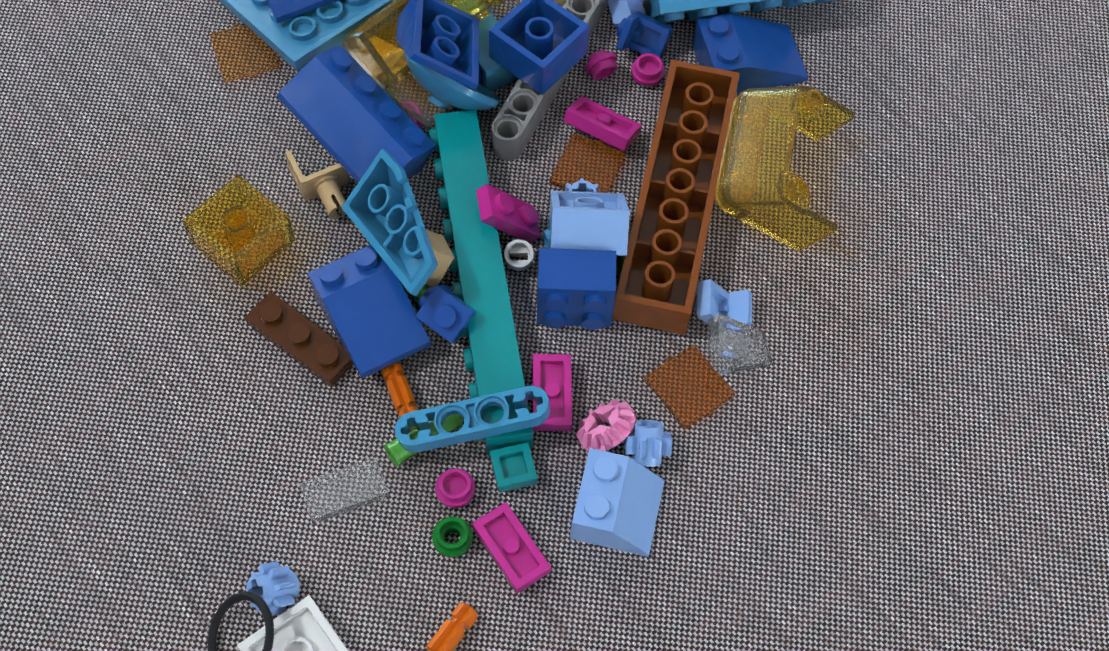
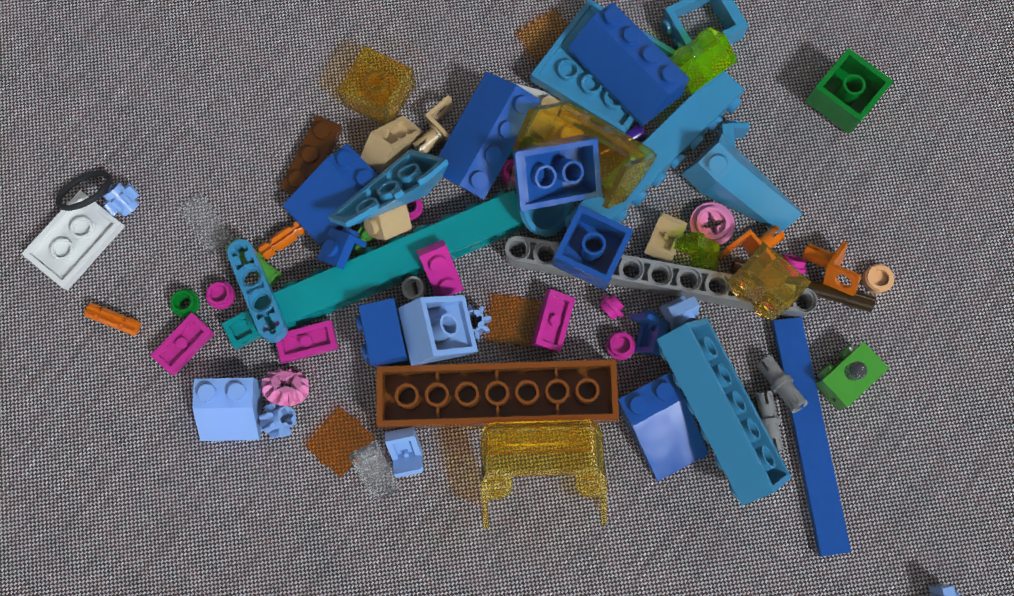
camera: 80 degrees right, 15 degrees up
(321, 234) = (390, 143): none -> tan arch

